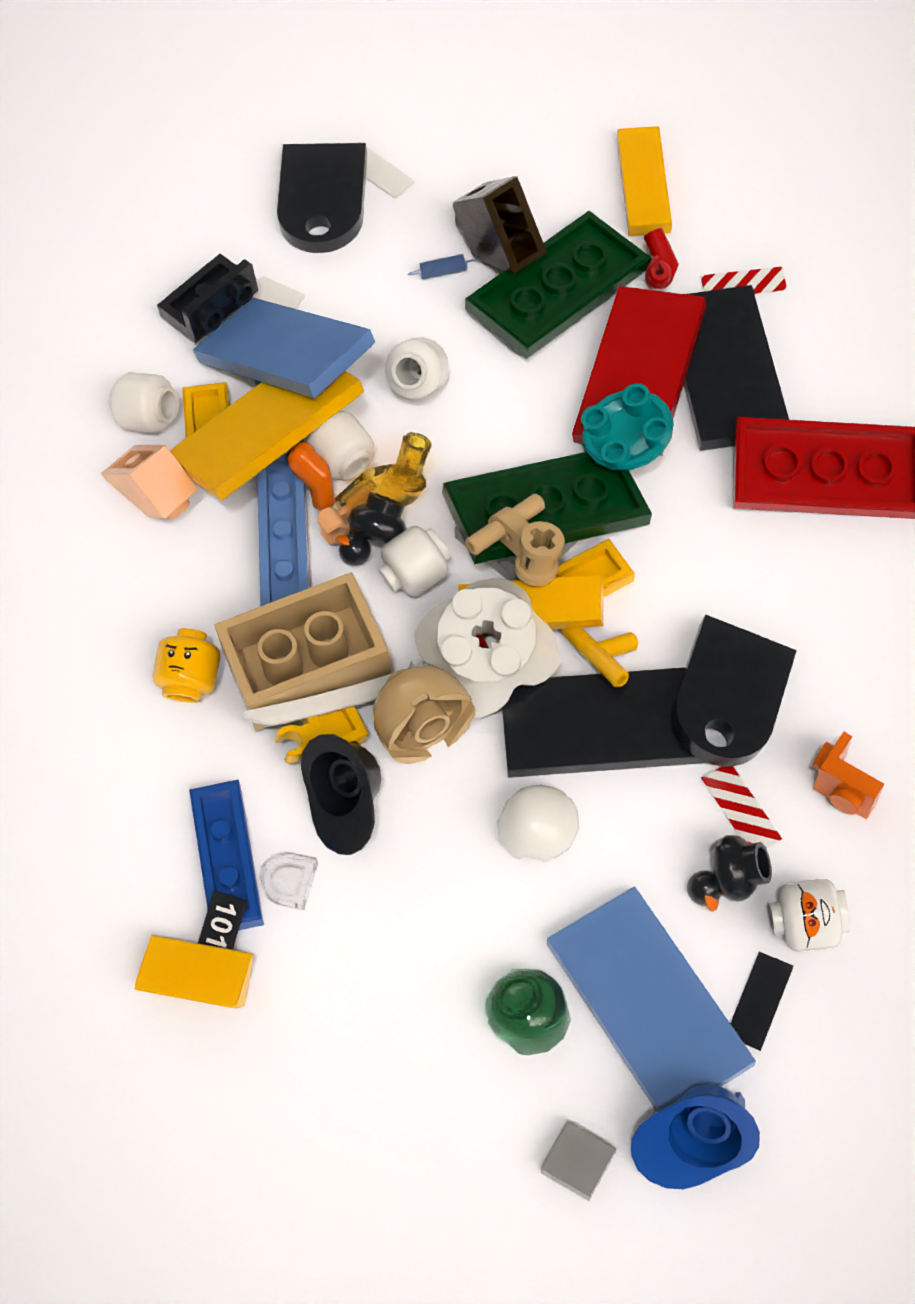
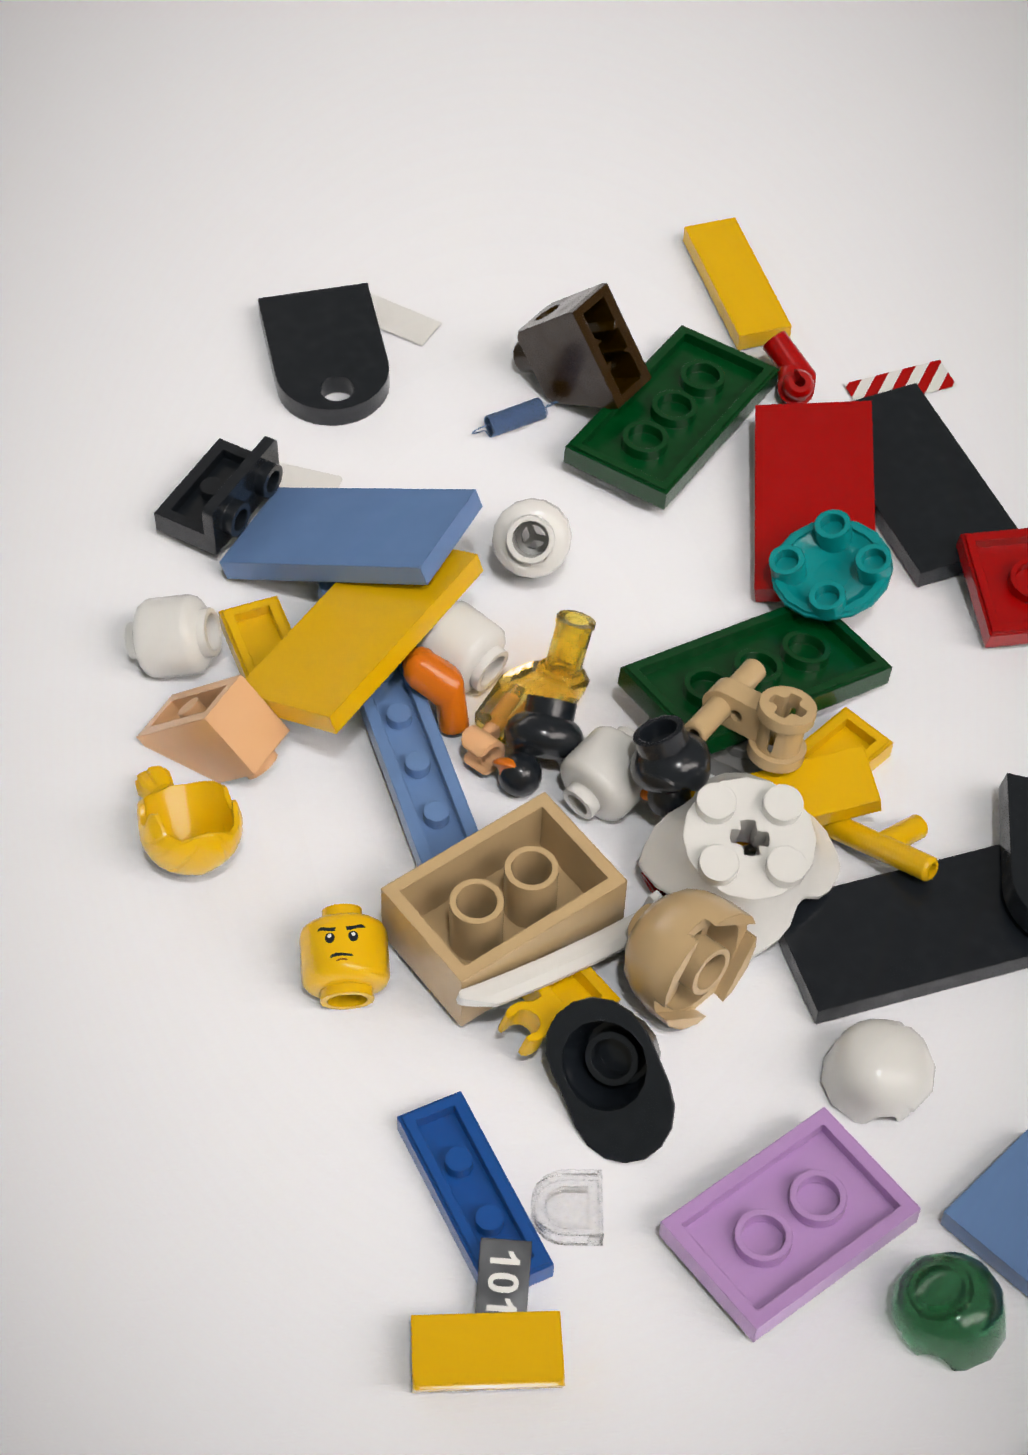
camera: 20 degrees left, 10 degrees down
(107, 547) = (186, 825): none -> yellow hair
(434, 923) = (789, 1223): none -> lavender plate
(448, 564) = (668, 763): none -> black animal

